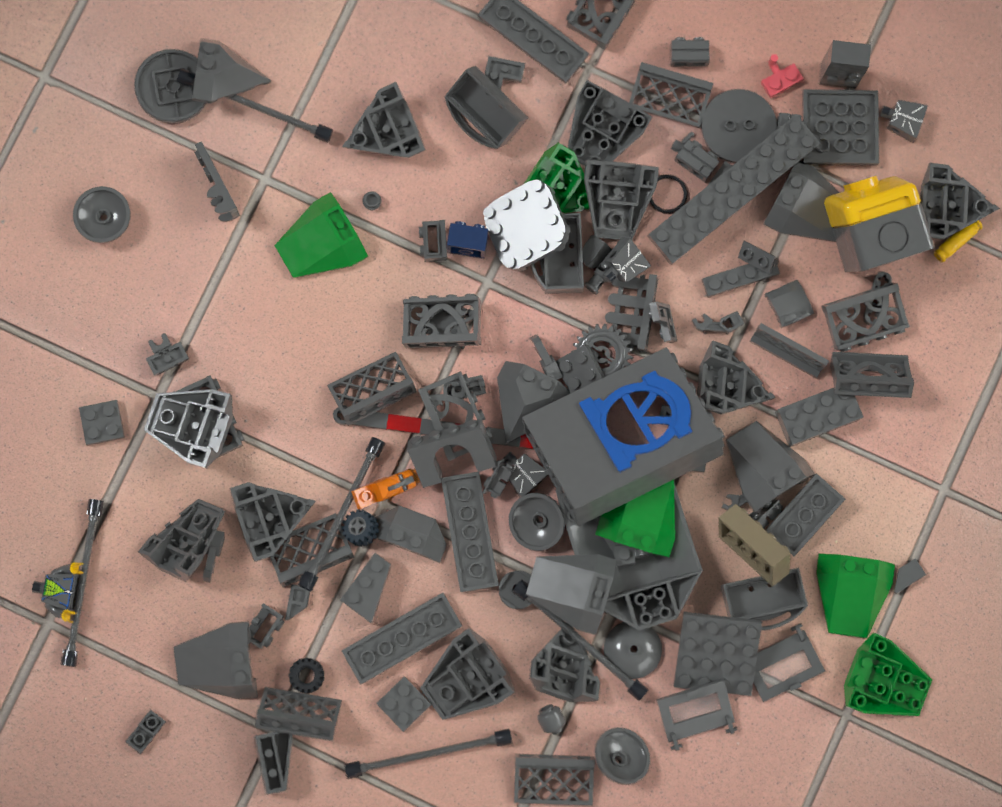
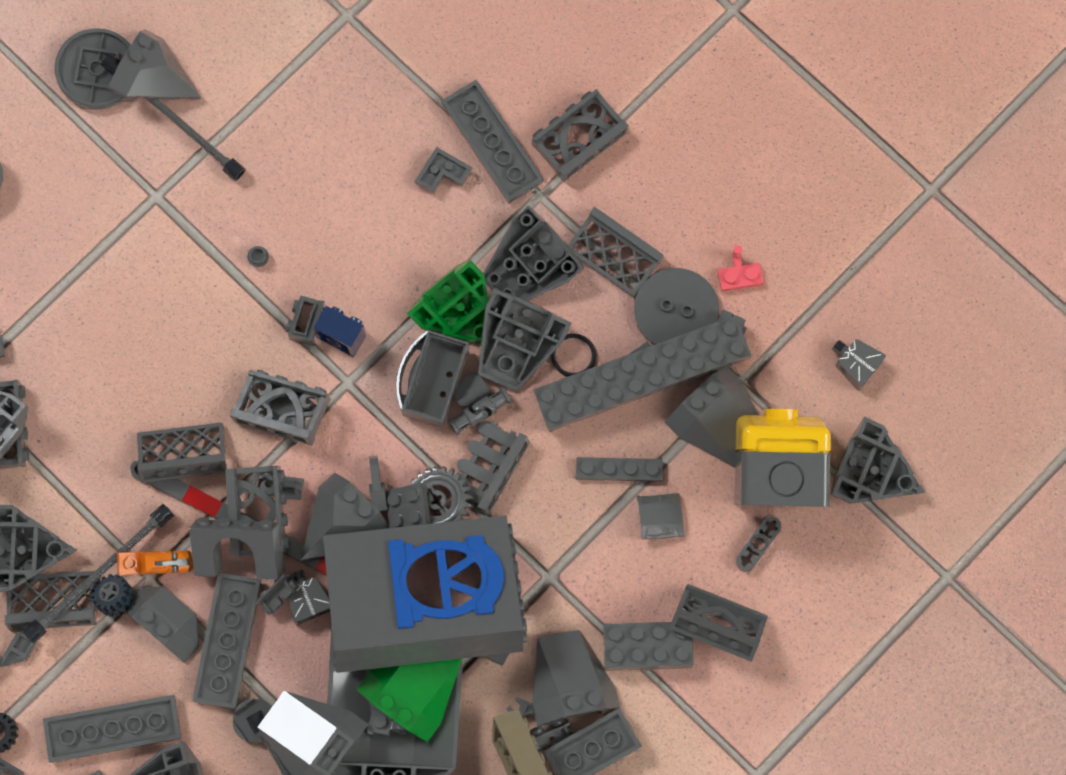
camera: 25 degrees right, 5 degrees down
(220, 196) = (102, 203): dark grey hinge -> none
(321, 240) = (187, 280): green wedge -> none
(367, 588) = (96, 661): dark grey wedge -> none
(387, 126) = (302, 184): dark grey wedge -> none
(485, 108) = (411, 198): dark grey piece -> none
(526, 225) = (407, 336): plate -> none
(526, 526) = (290, 654): dark grey dish -> none
(625, 261) = (497, 410): dark grey torso -> none
(662, 314) = (519, 481): dark grey plate -> none
(677, 145) = (603, 309): dark grey hand -> none
(689, 52) = (651, 214): dark grey brick -> none
(697, 160) = (617, 330): dark grey brick -> none
(708, 324) = (566, 510): dark grey piece -> none
(728, 383) = (561, 577): dark grey wedge -> none
(757, 257) = (643, 455): dark grey hinge -> none
(788, 350) = (639, 566): dark grey fence -> none
(841, 307) = (760, 538): dark grey fence -> none
(844, 64) = (808, 280): dark grey brick -> none
(844, 125) = (786, 347): dark grey plate -> none
(956, 241) = (867, 511): yellow axle -> none

